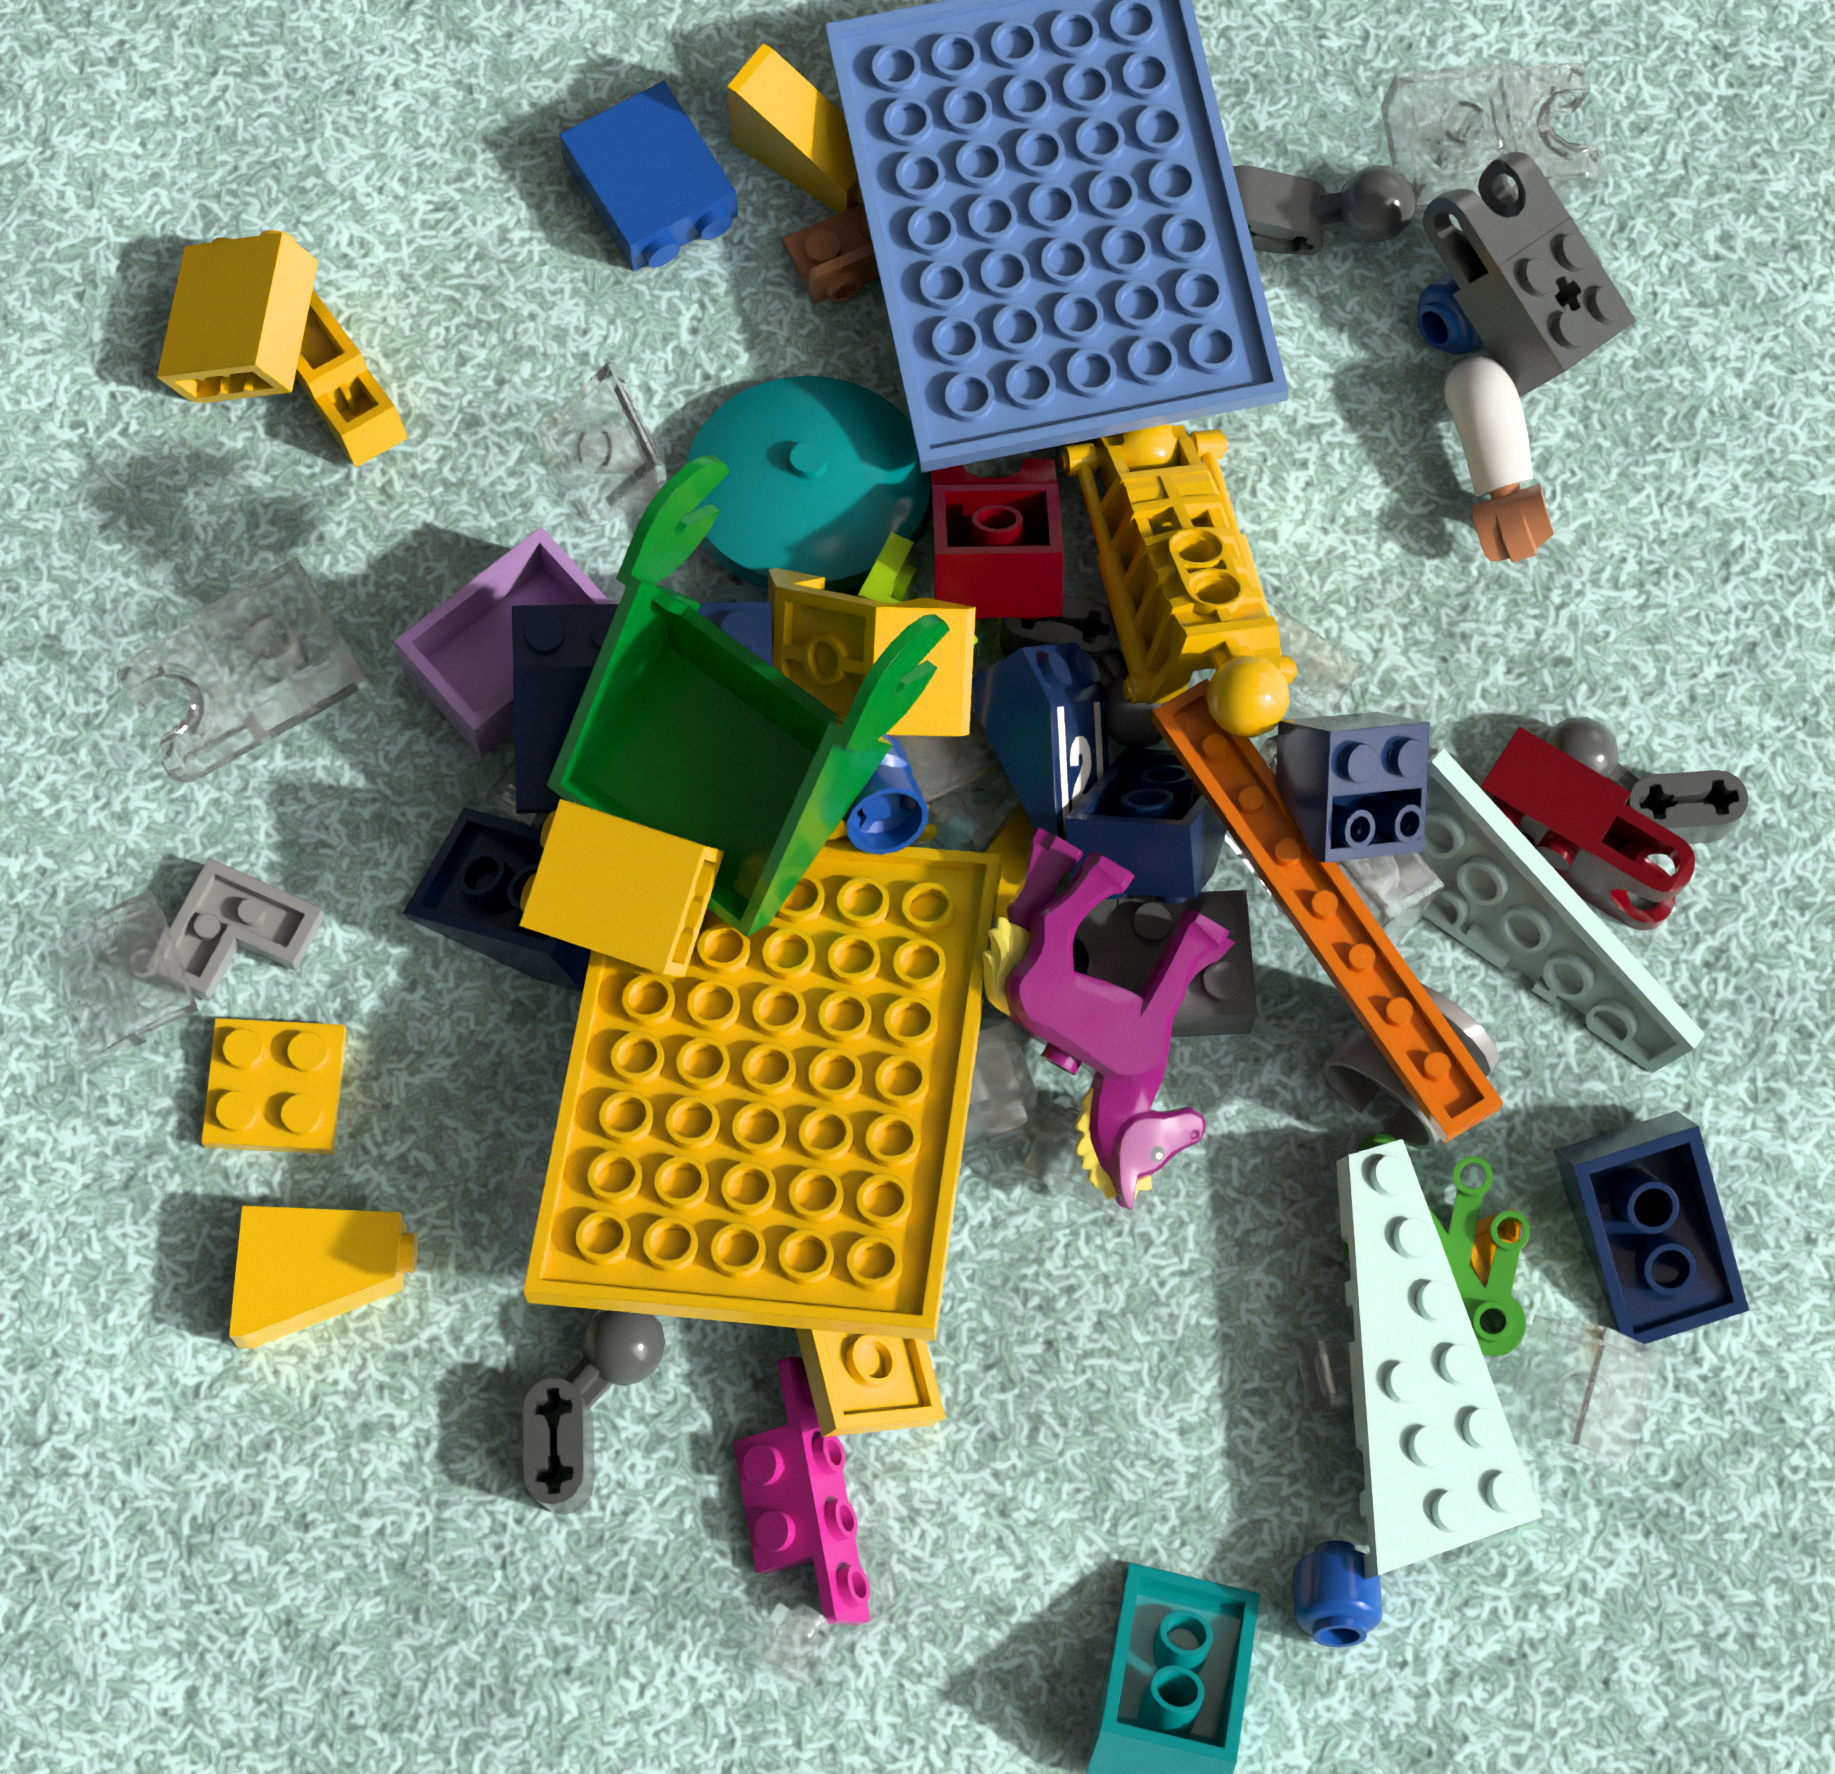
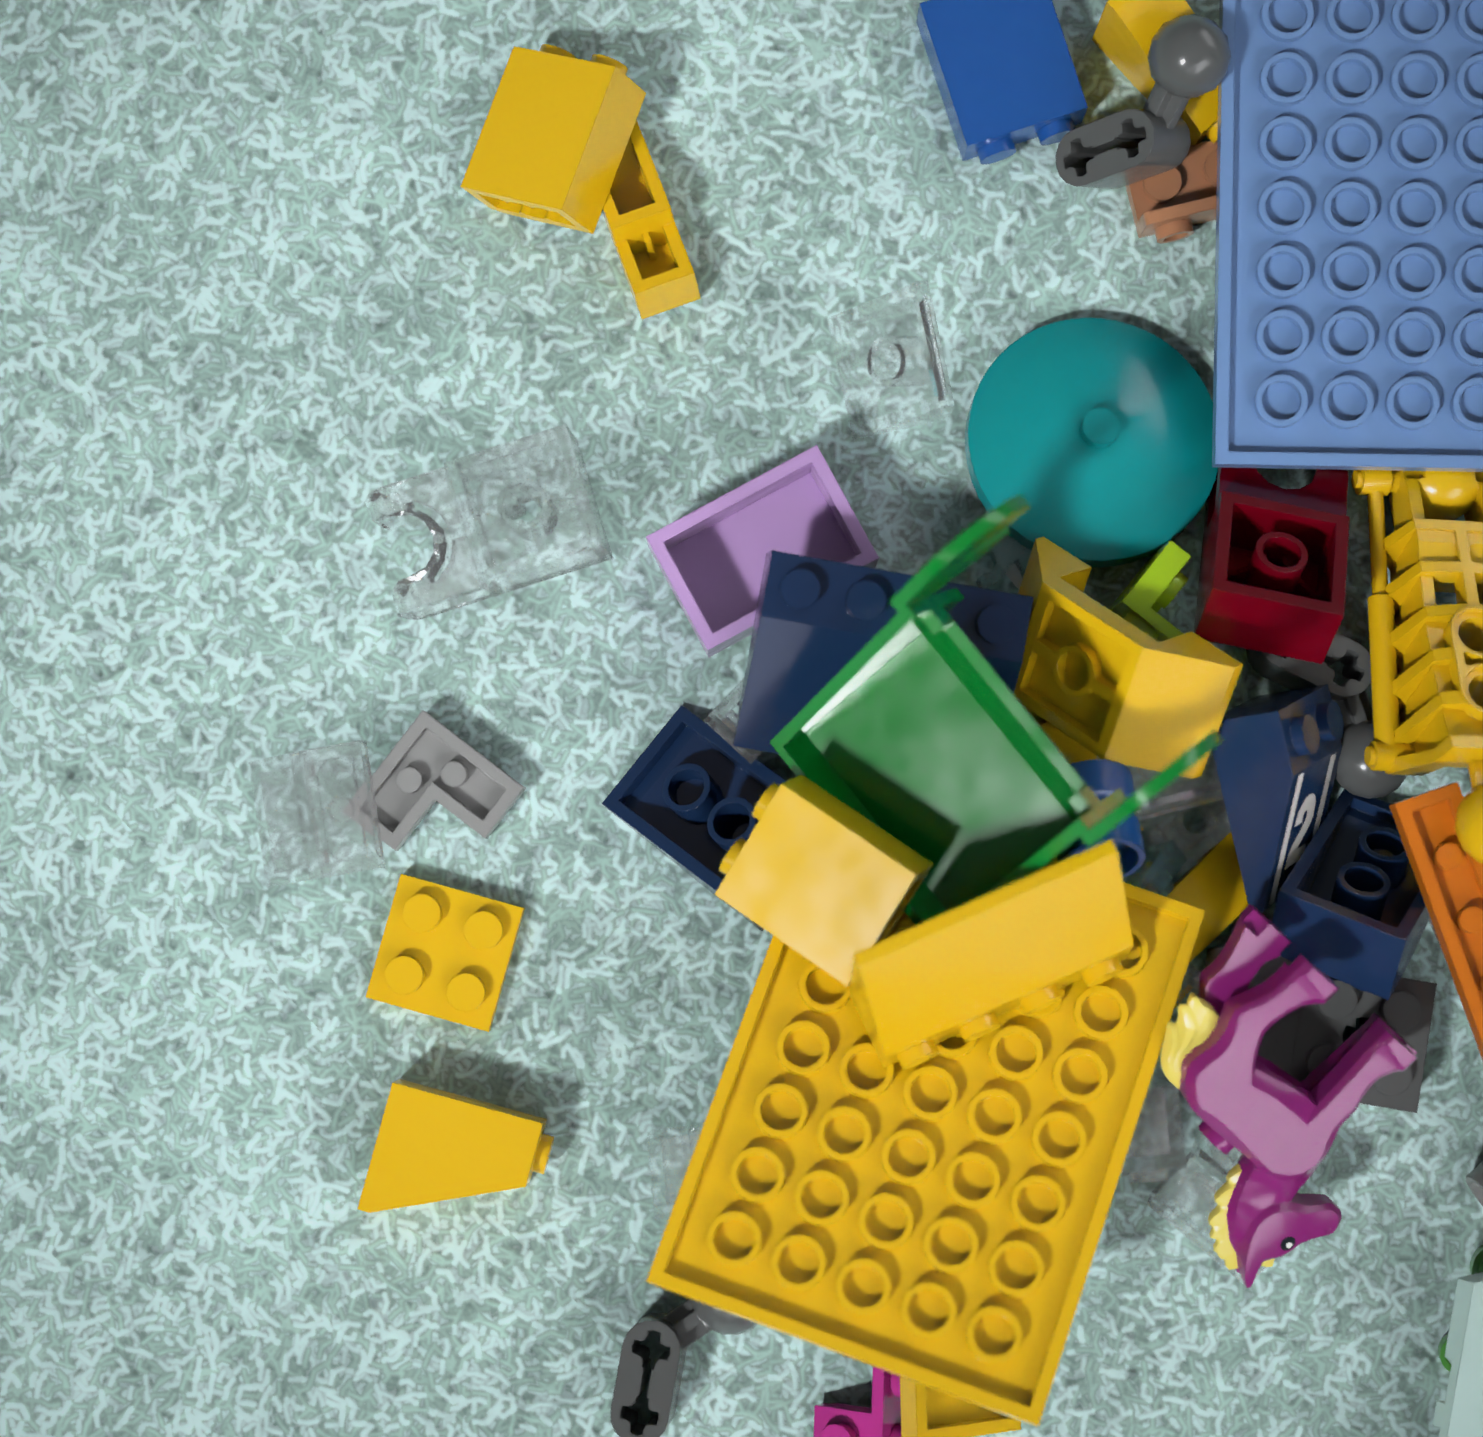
camera: 15 degrees right, 15 degrees up
(791, 205) = (1185, 61): none -> dark grey beam
(791, 906) = (993, 957): none -> yellow slope

